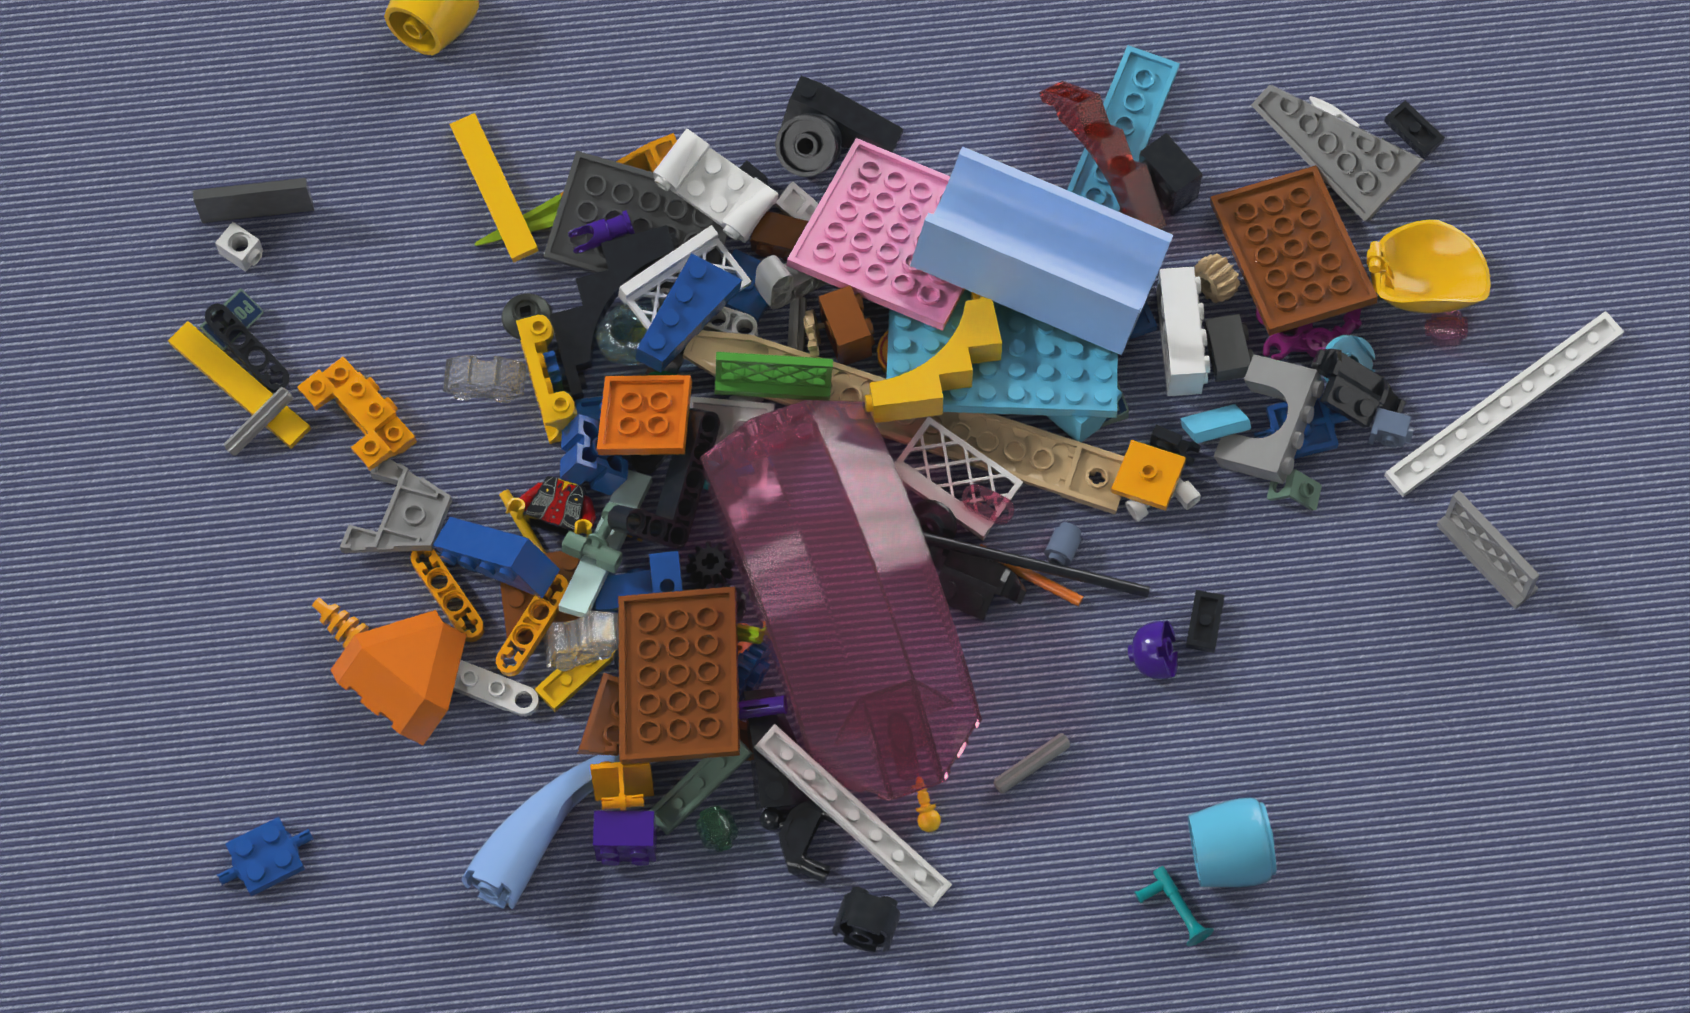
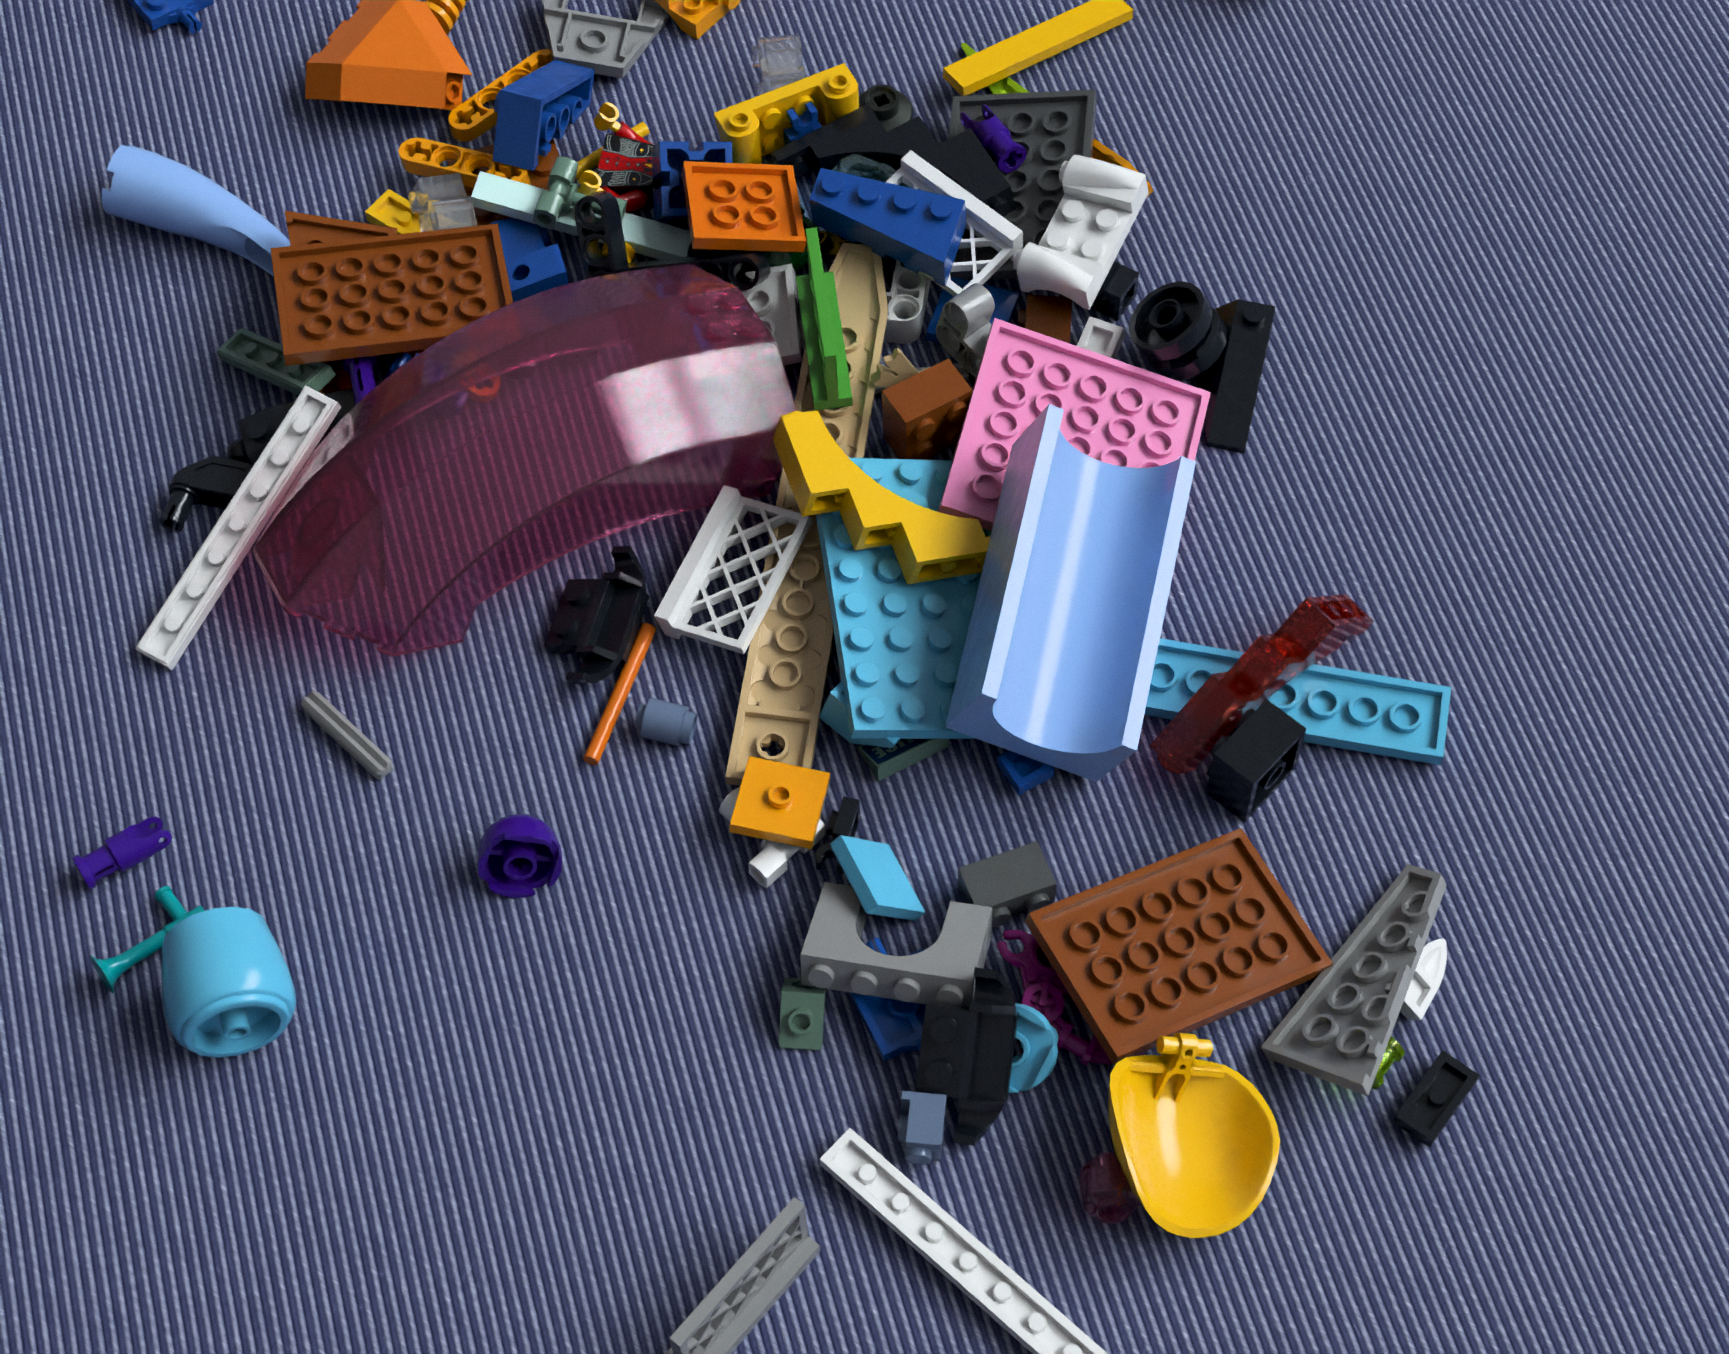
camera: 80 degrees right, 10 degrees down
(493, 689) = (384, 162): white plate -> none
(621, 784) = (250, 270): light orange plate -> none
(625, 837) = (196, 298): dark purple brick -> none
(717, 828) = (223, 398): clear green head -> none
(867, 920) = (101, 568): black brick -> none
(928, 819) = (261, 628): yellow bar -> none
(938, 516) = (664, 557): black piece -> none
(991, 498) = (694, 610): clear pink beam -> none
(1036, 565) = (627, 688): black piece -> none
(1105, 925) = (123, 851): none -> dark purple piece
(1182, 331) = (1011, 809): white brick -> none
(1205, 621) = (578, 917): black plate -> none
(1217, 278) = (1108, 848): tan gear -> none

